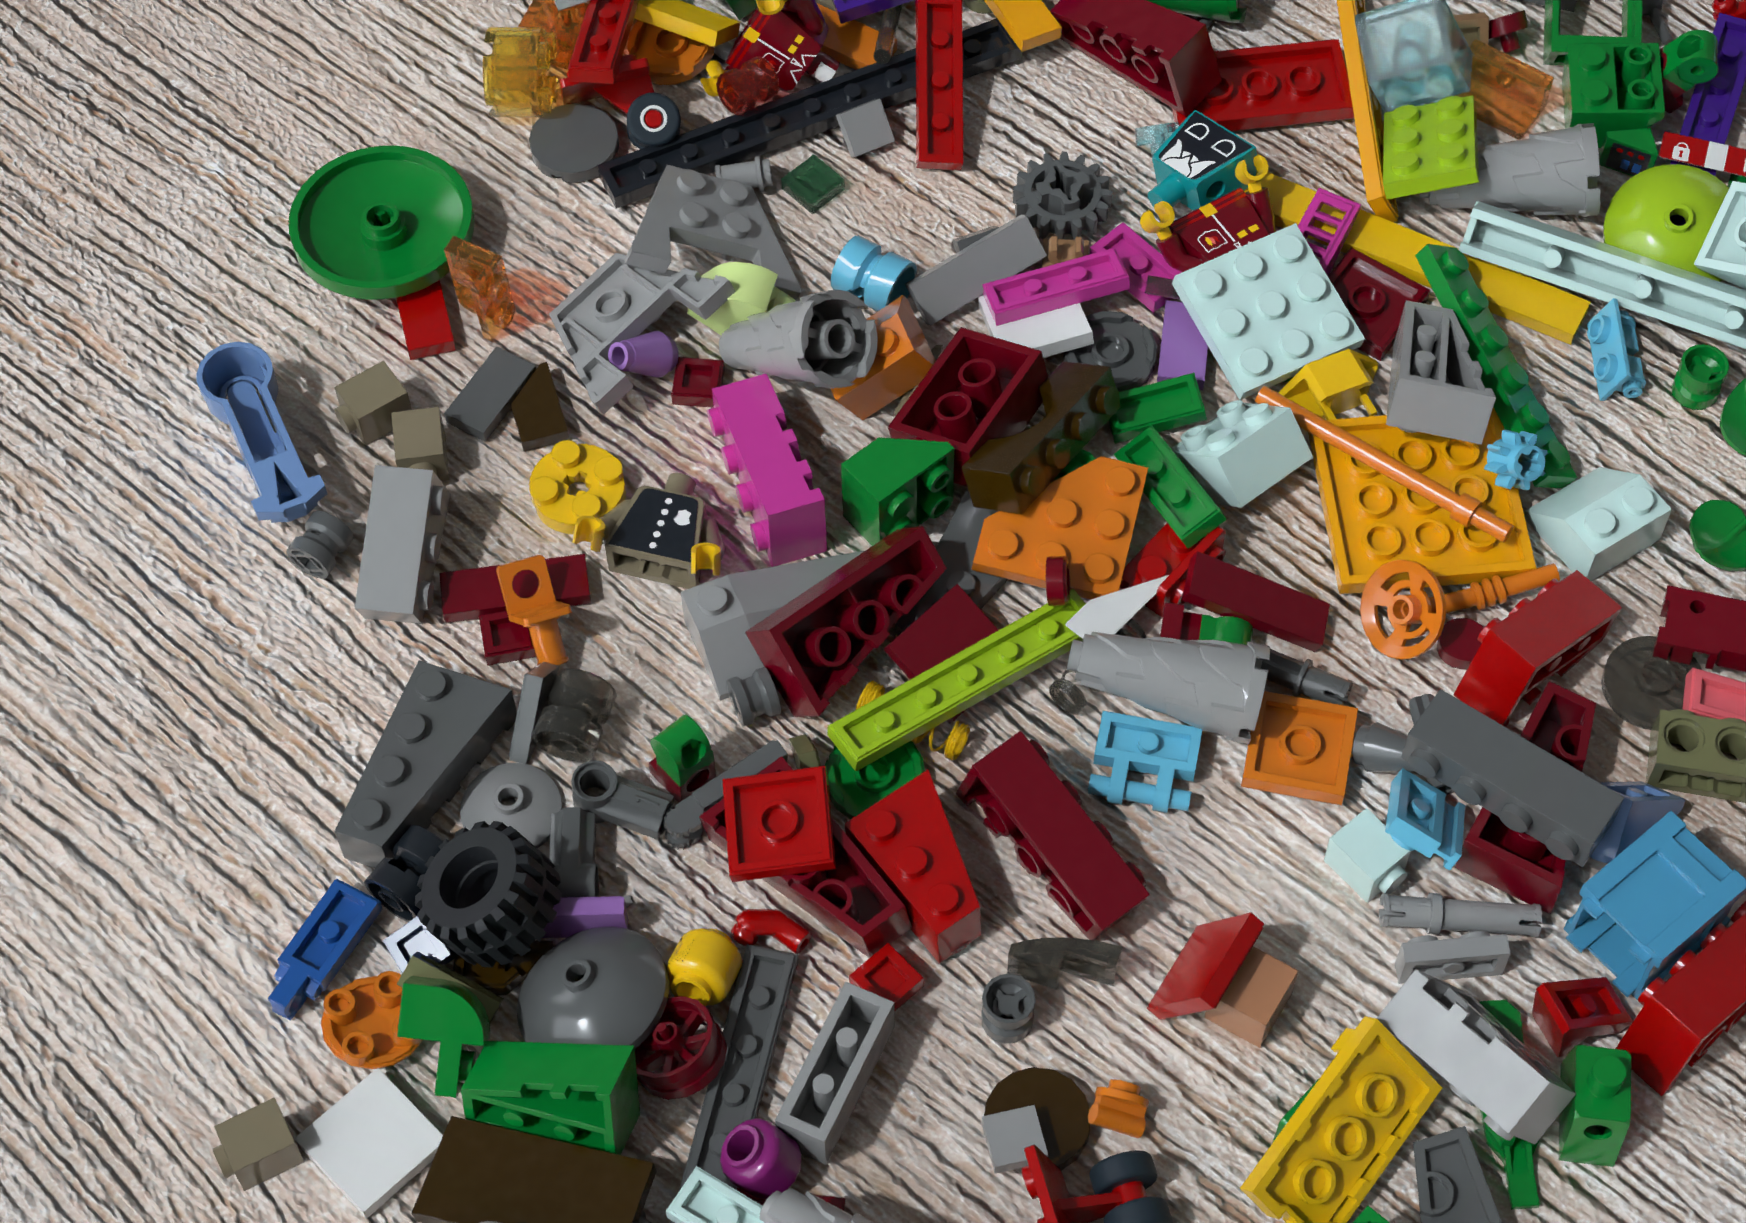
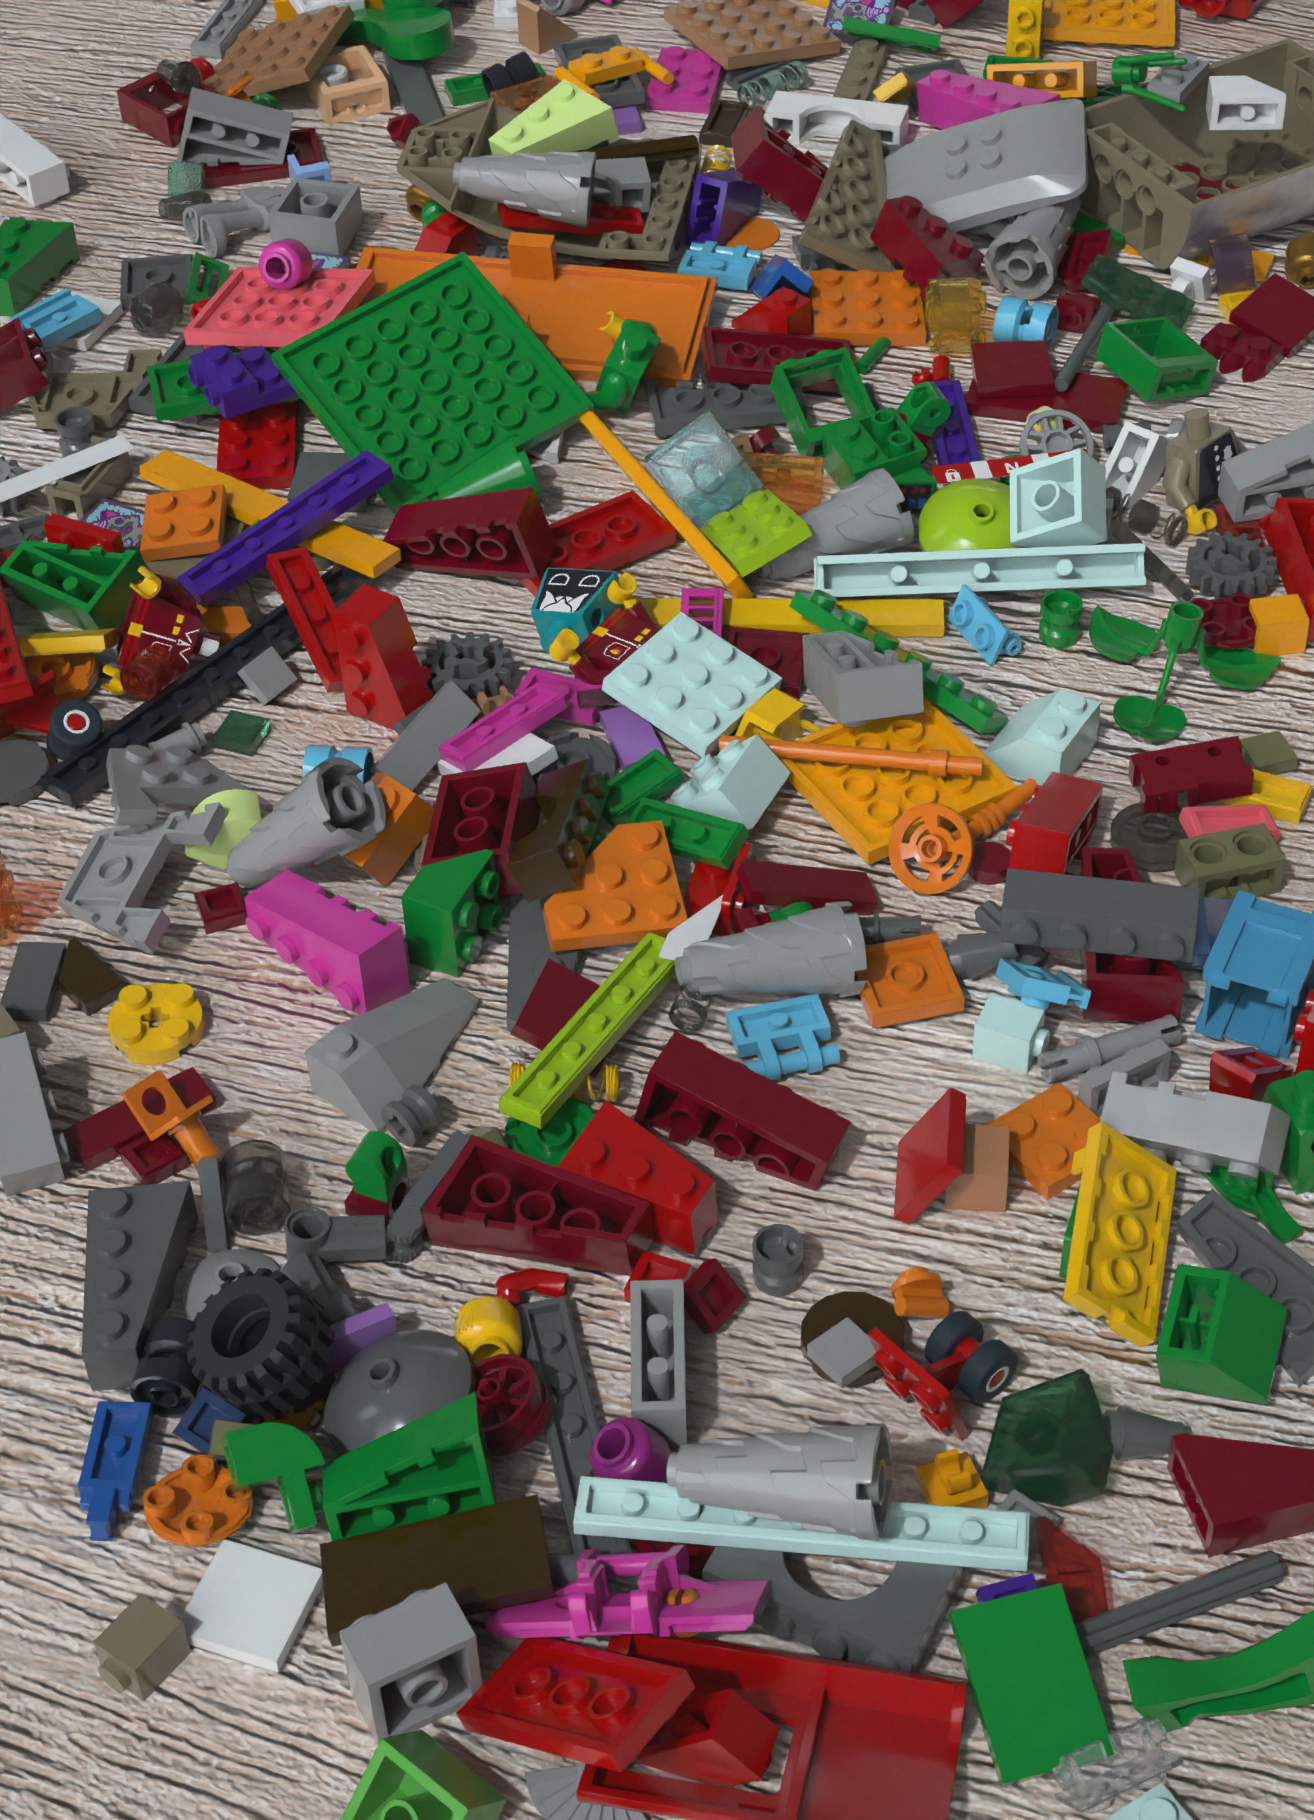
camera: 25 degrees left, 15 degrees down
(646, 354) = (170, 893): medium lavender cone -> none
(658, 534) = (257, 1026): torso -> none
(778, 824) = (500, 1184): red tile -> none
(834, 625) = (460, 1025): dark red wedge -> none
(925, 1018) = (711, 1296): none -> dark red plate
(966, 162) = (378, 658): none -> red wedge
(1046, 959) = (809, 1199): clear smoke slope -> none
(1058, 580) = (636, 923): dark red tile -> none
(1154, 135) = (521, 602): clear light blue tile -> none
(1341, 985) = (1045, 1137): none -> orange plate
(1515, 460) = (958, 711): medium azure gear -> none

